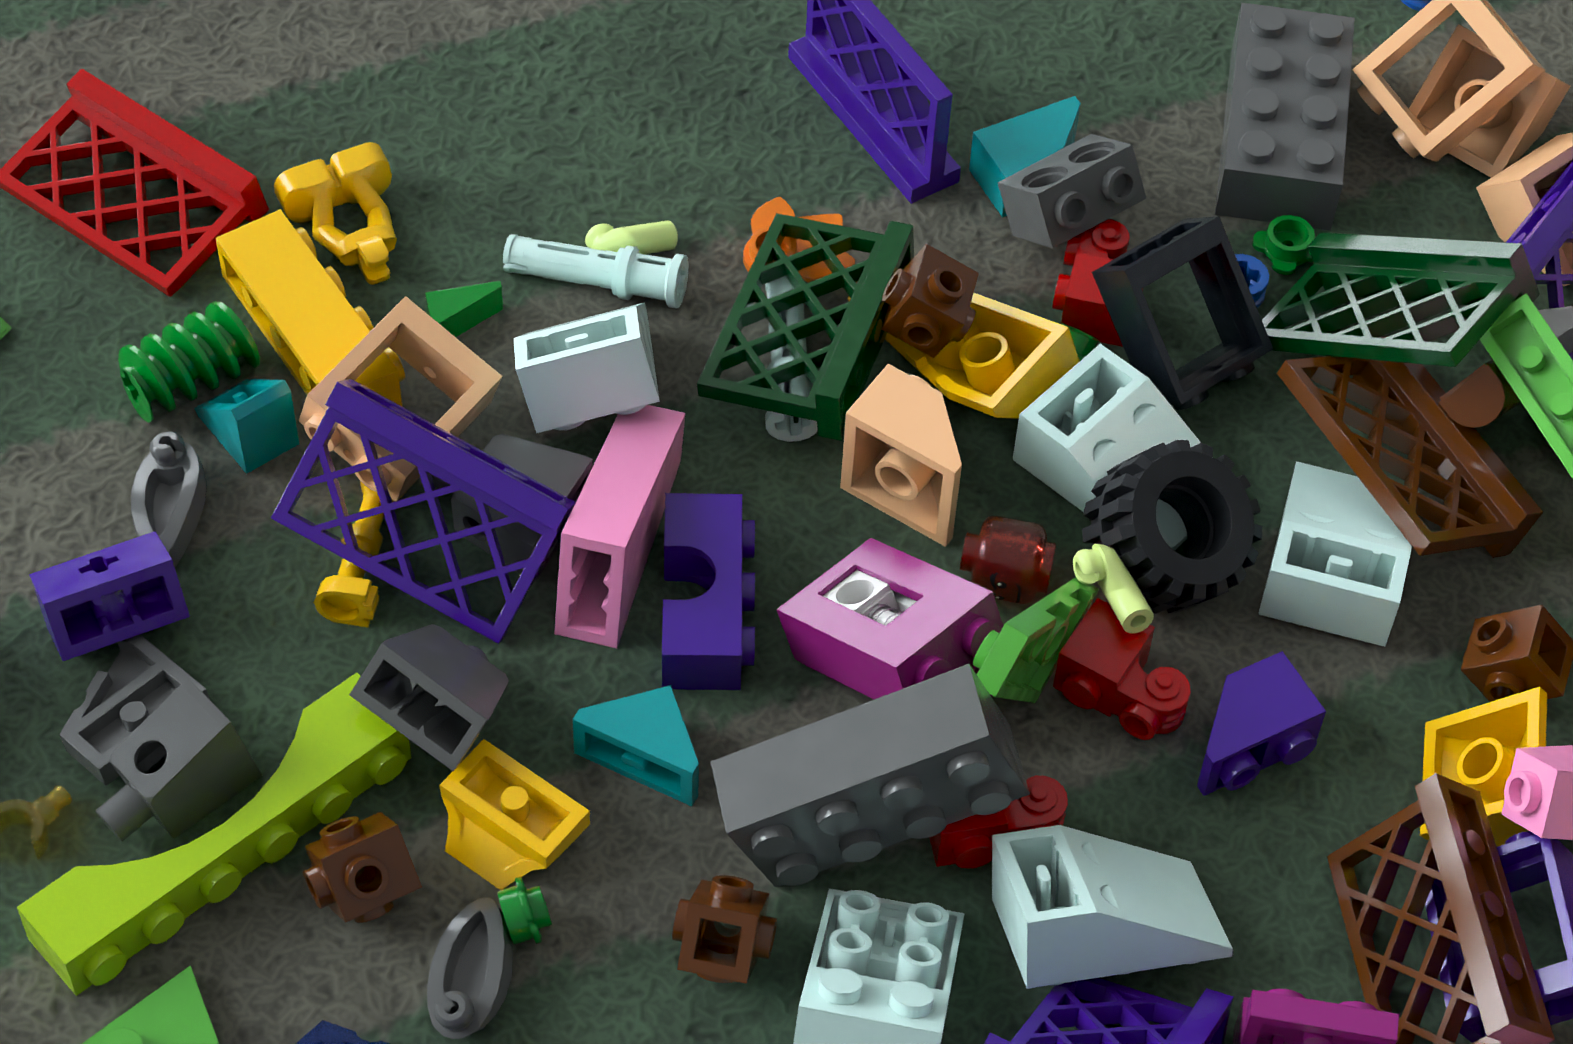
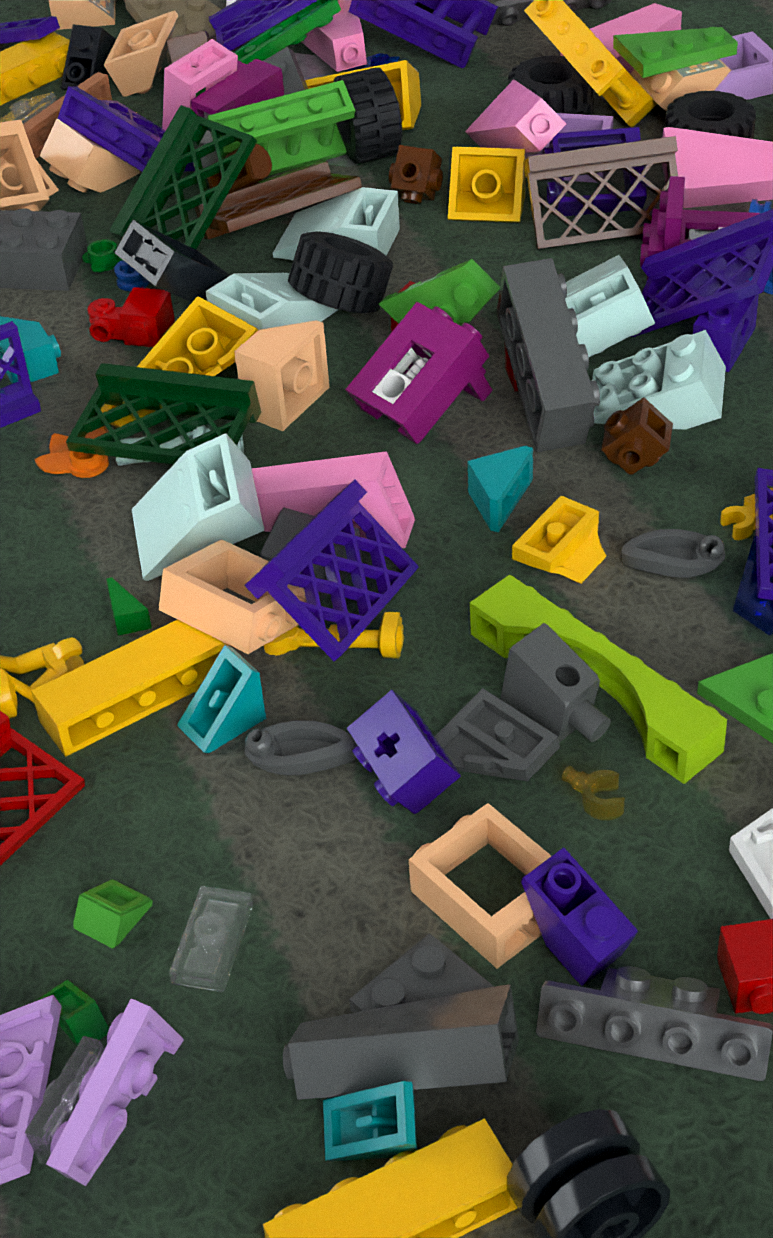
camera: 85 degrees left, 10 degrees down
(184, 356) = (172, 744): green piece -> none
(360, 868) = (616, 595): reddish brown brick -> none
(432, 690) = (468, 566): dark grey torso -> none
(524, 912) = (630, 525): green plate -> none
(622, 271) = (98, 525): light aqua pin -> none
(646, 237) = (70, 522): yellowish green arm -> none
(705, 634) = (415, 458): dark purple arch -> none
(930, 301) = (171, 348): reddish brown brick -> none
(1009, 558) = (349, 346): clear red head -> none
(1072, 190) = (67, 314): dark grey brick -> none
(1106, 568) = (381, 285): yellowish green arm -> none
(1260, 720) = (455, 247): dark purple slope -> none

